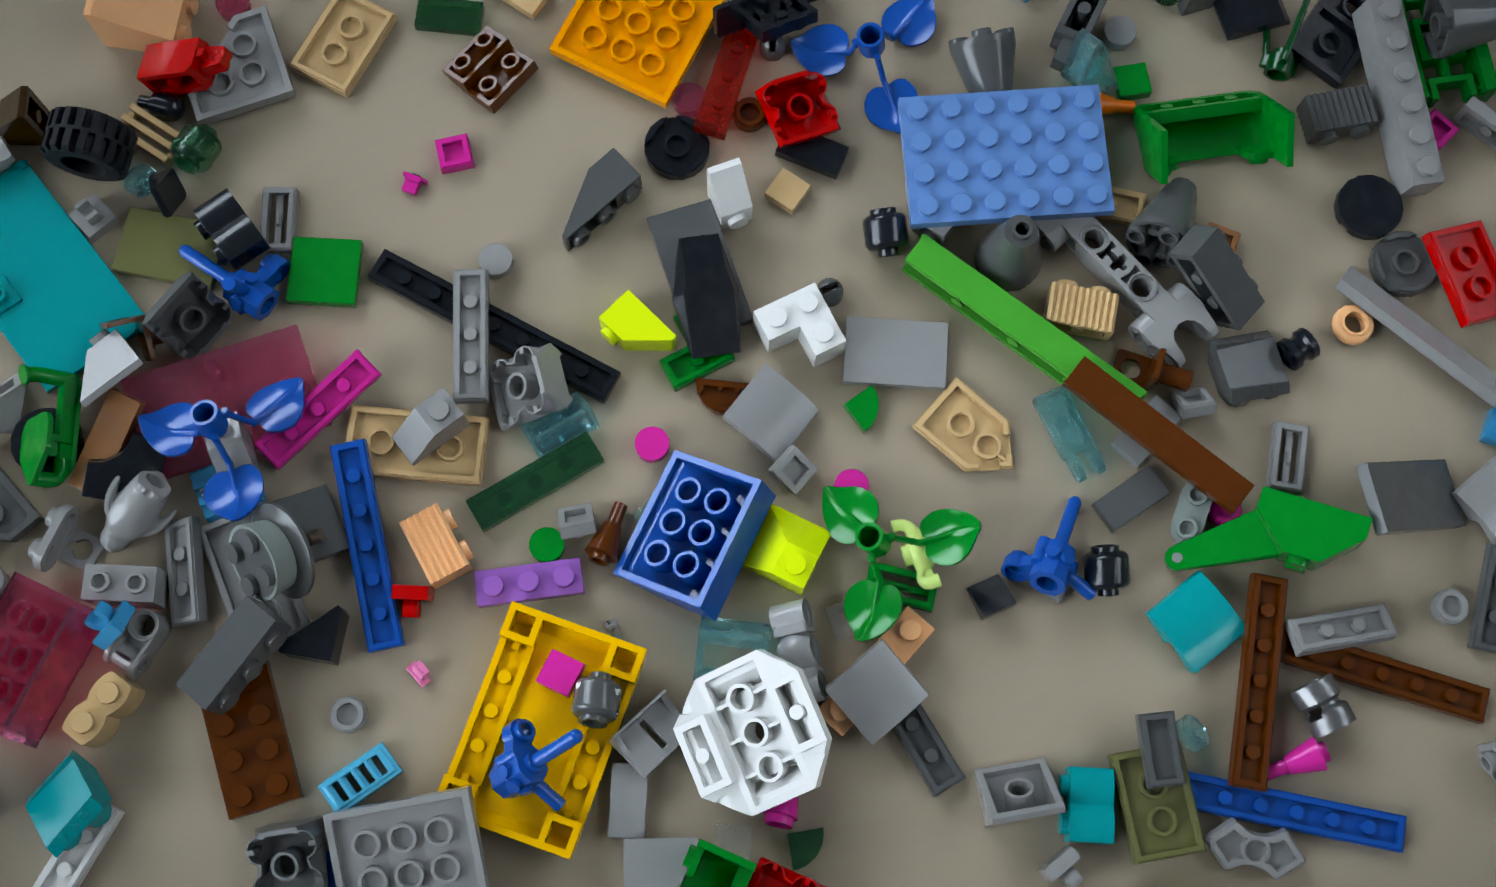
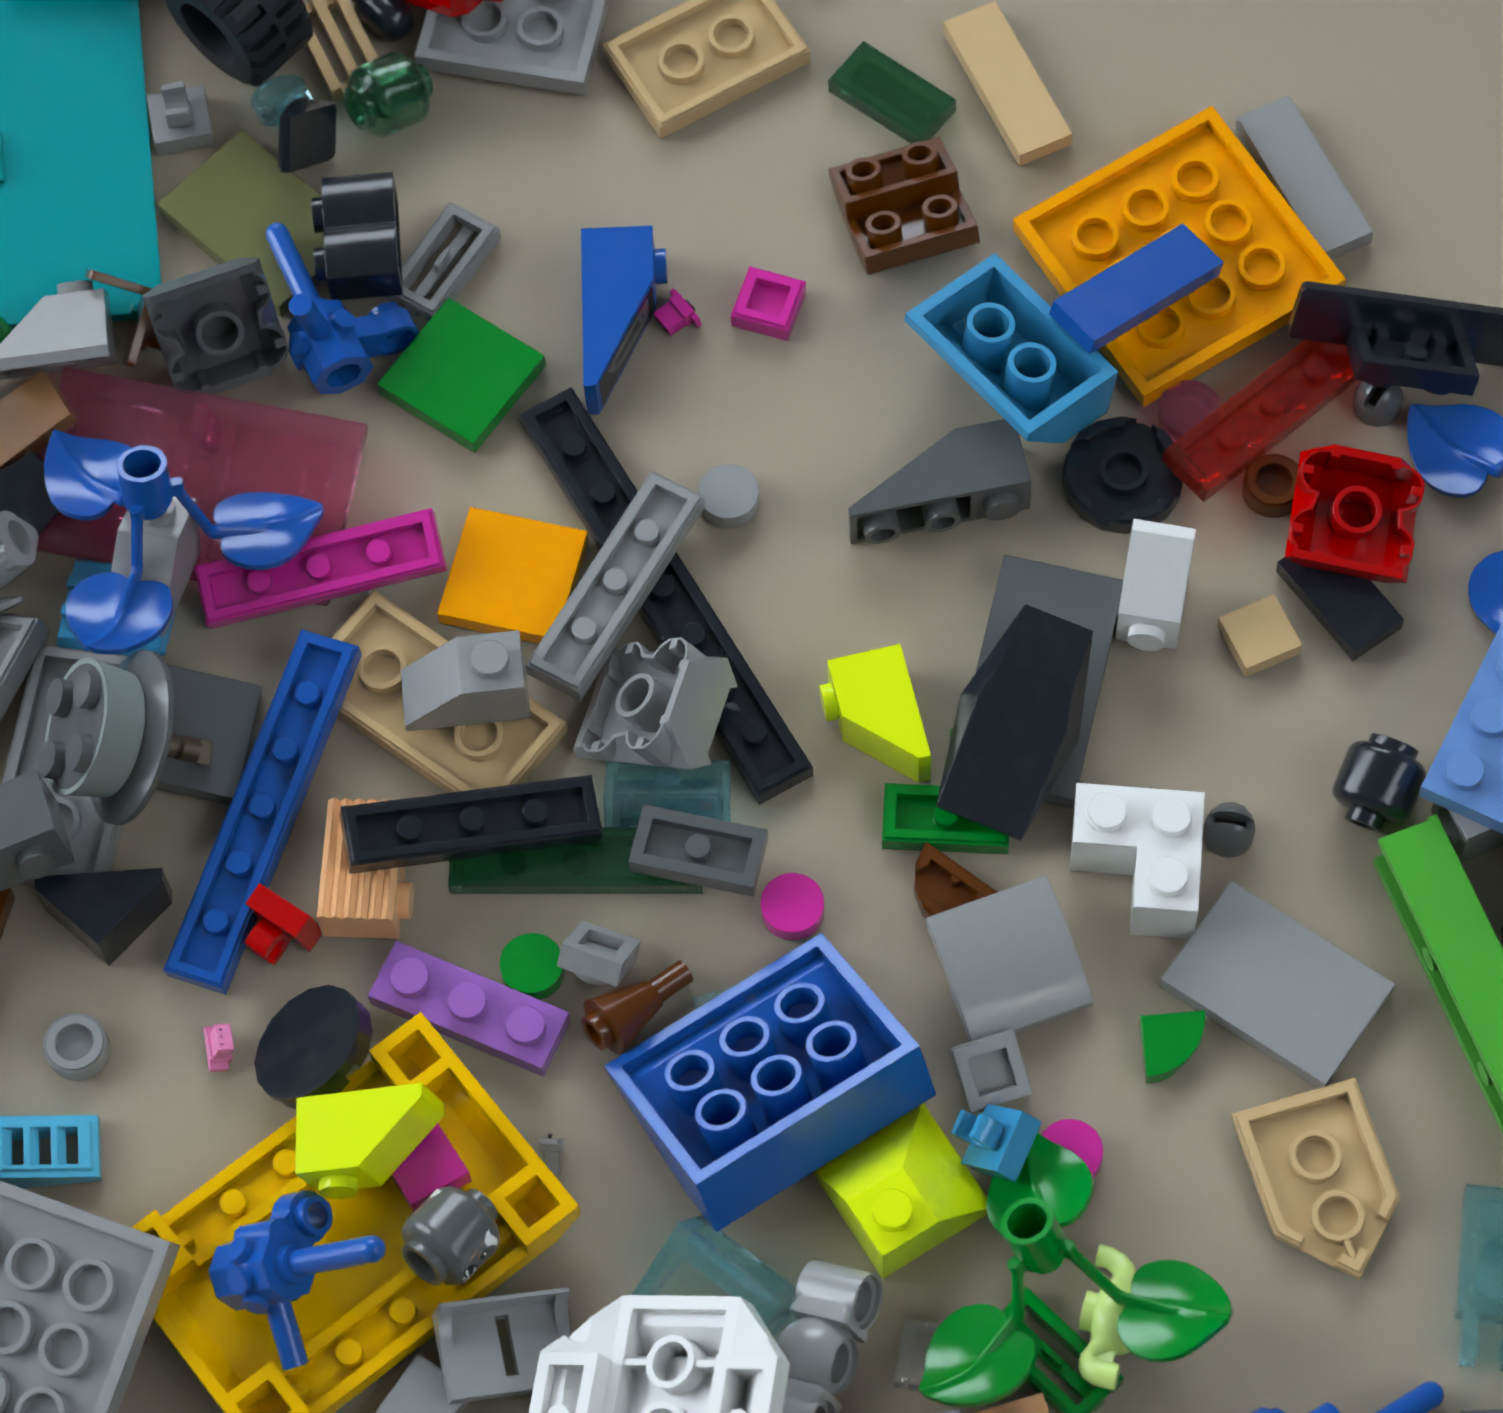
camera: 40 degrees right, 10 degrees down
(380, 191) = (617, 302): none -> blue slope
(415, 359) = (511, 574): none -> light orange tile
(468, 647) = (313, 1045): none -> black tile
(476, 495) = (470, 824): none -> black tile
(523, 680) = (361, 1136): none -> neon yellow slope
(594, 114) = (1015, 353): none -> dark azure slope
(594, 444) = (698, 850): none -> dark grey plate
(633, 52) = (1136, 288): none -> blue tile
(818, 501) = (996, 1140): none -> dark azure tile

